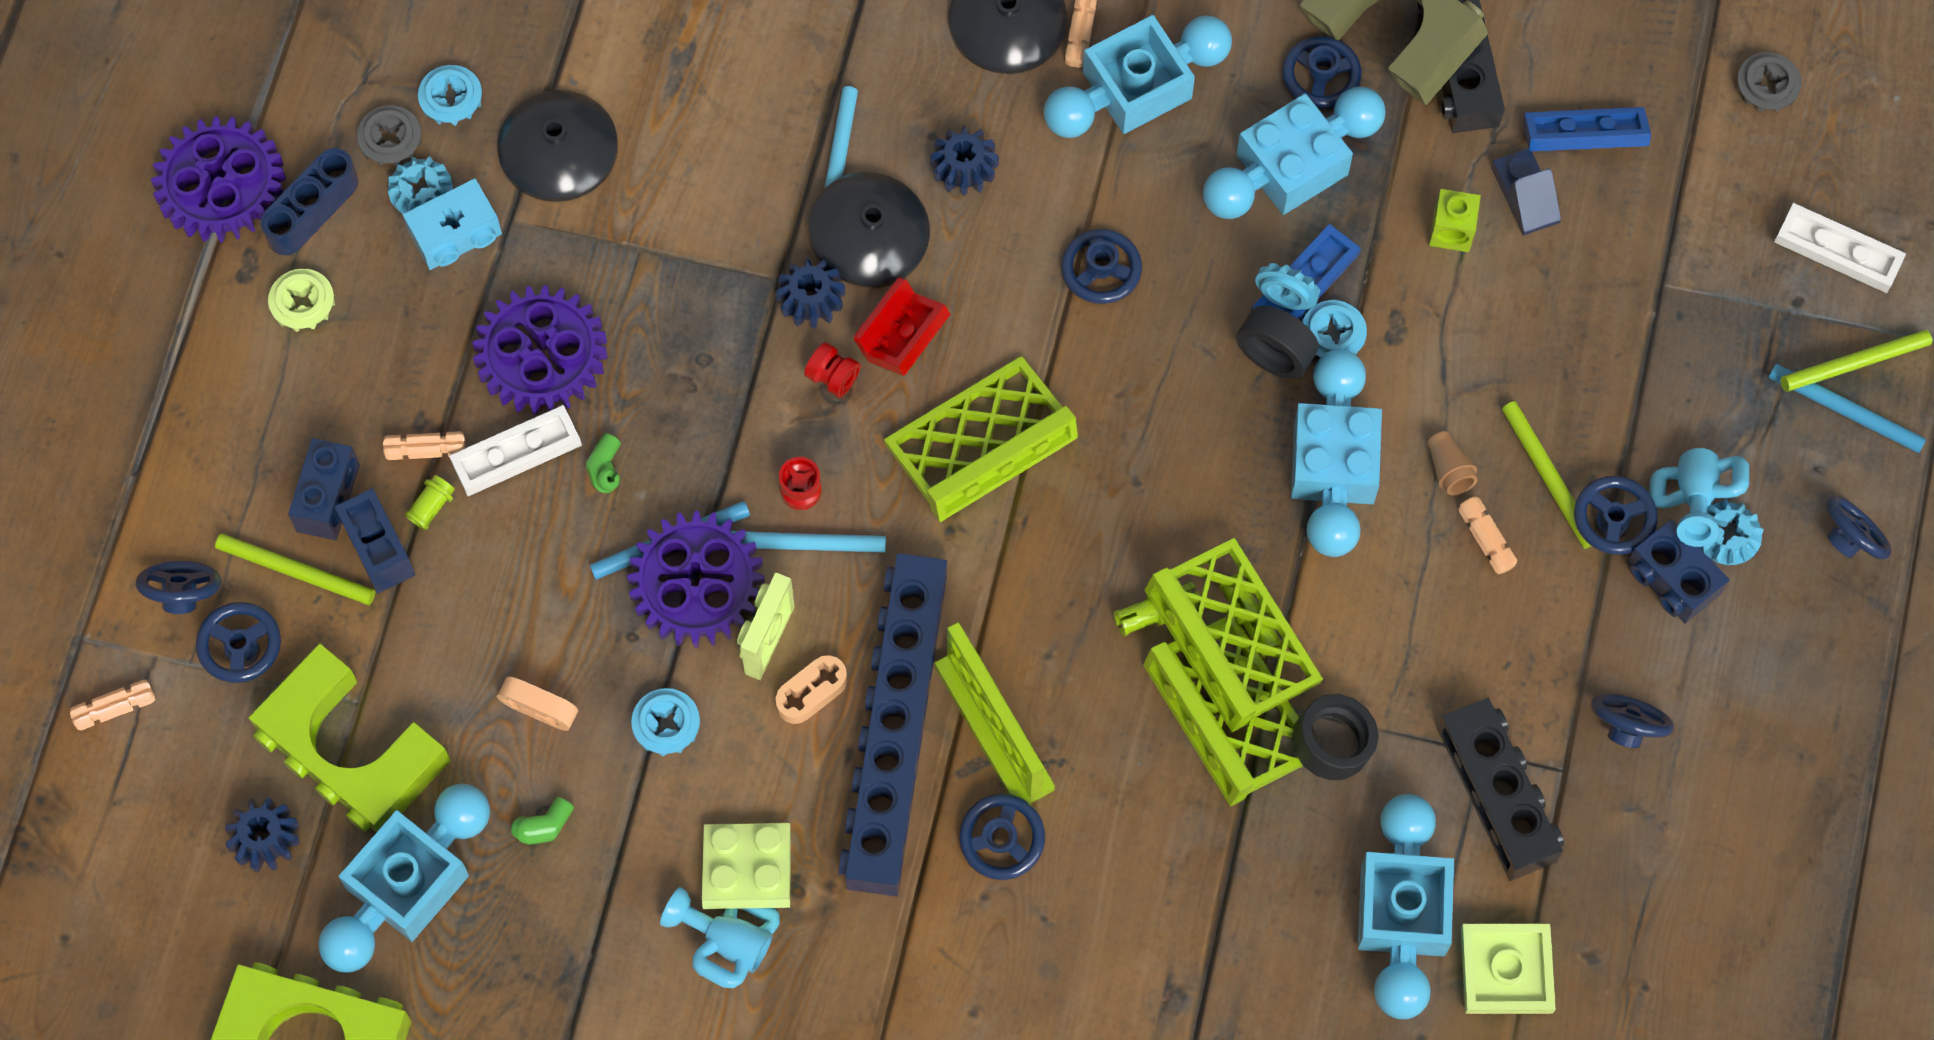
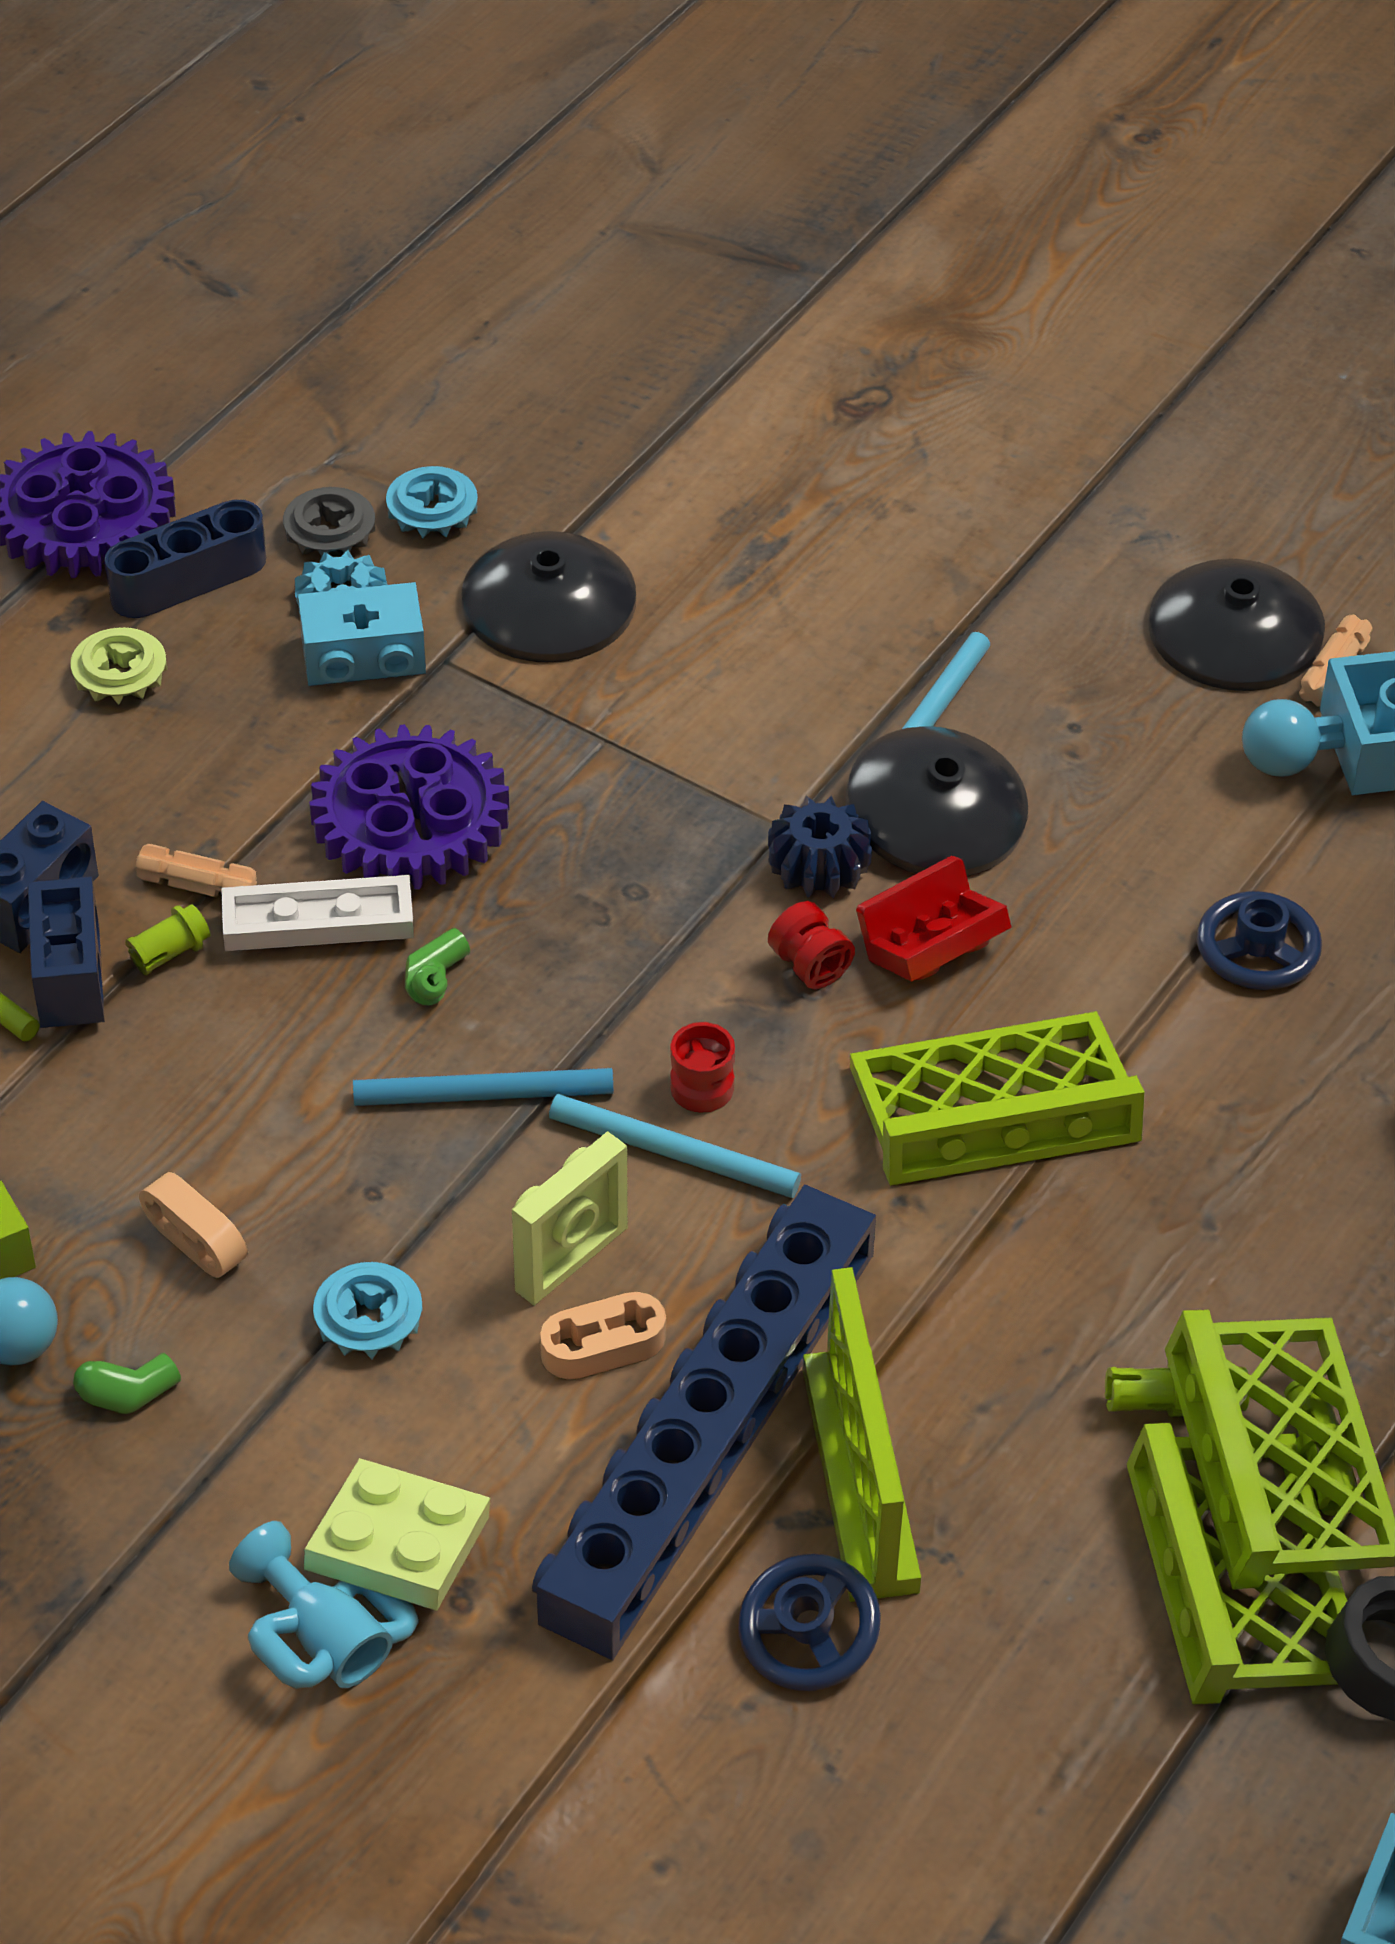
camera: 20 degrees right, 20 degrees down
(697, 541) = (490, 1135): dark purple gear -> none
(965, 173) = (1106, 756): dark blue gear -> none

